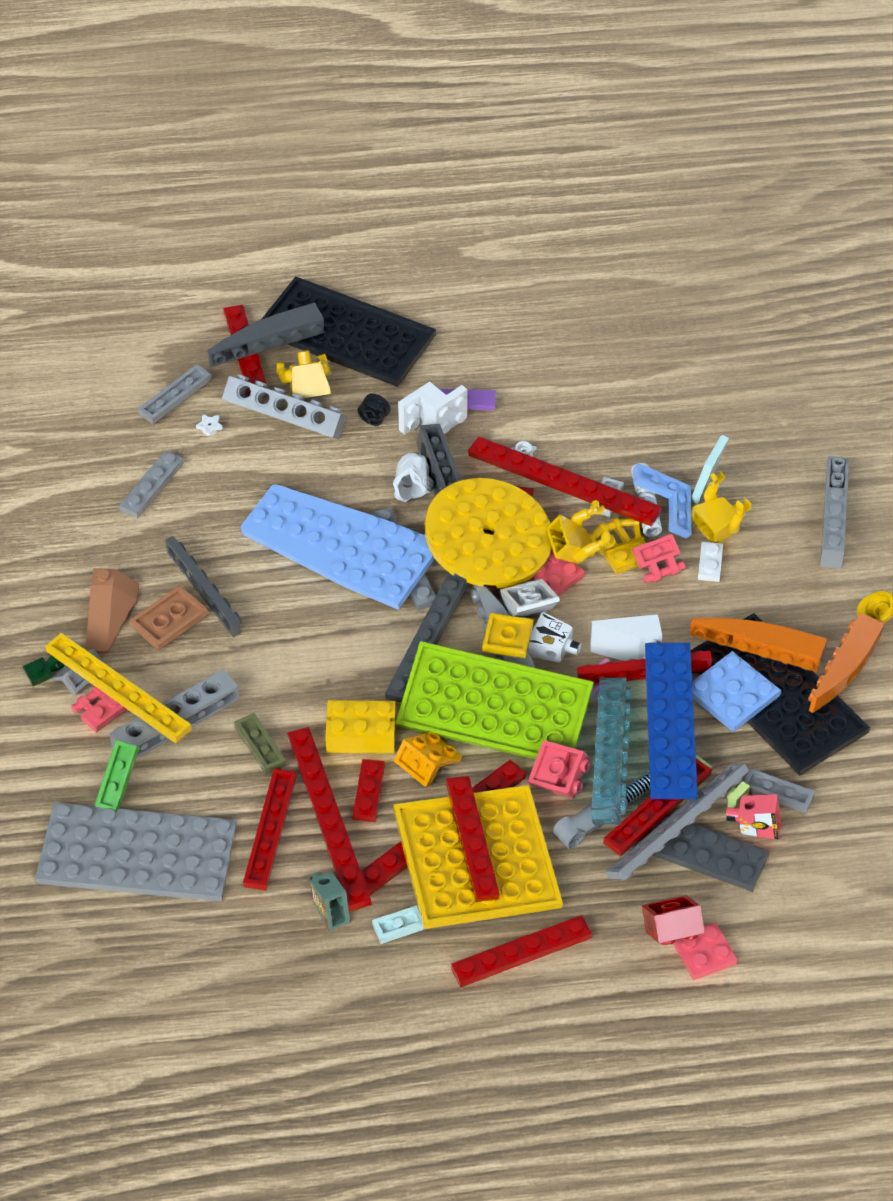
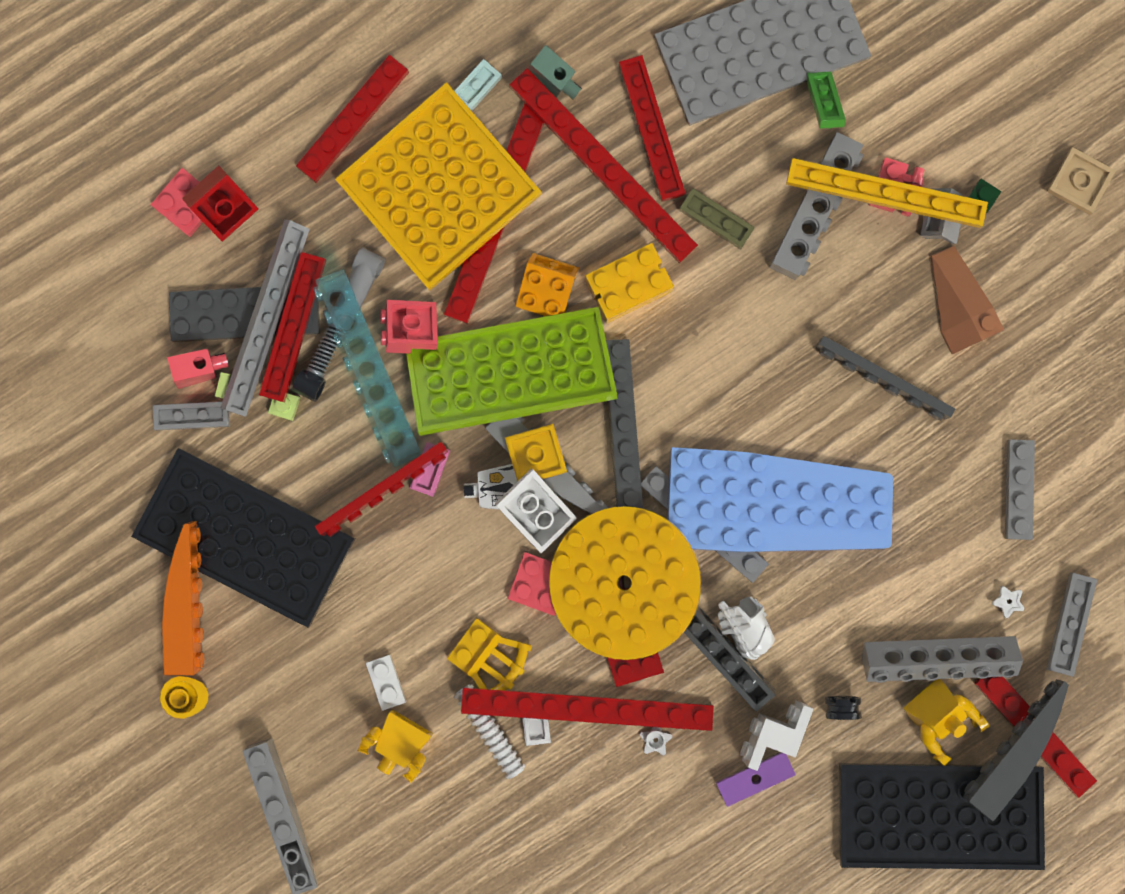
camera: 155 degrees right, 35 degrees up
(168, 617) = (895, 323): nougat plate -> none
(368, 790) = (584, 222): red plate -> none
(472, 839) = (448, 194): red plate -> none
(571, 541) = (533, 620): yellow torso -> none
(625, 637) = (404, 523): white slope -> none
(655, 552) = (441, 655): coral plate -> none
(668, 487) = (456, 752): light blue plate -> none
(670, 721) = (321, 426): blue plate -> none
(709, 468) = (430, 791): light aqua tile -> none
(733, 691) = (283, 509): light blue plate -> none
(763, 639) = (272, 586): orange slope -> none

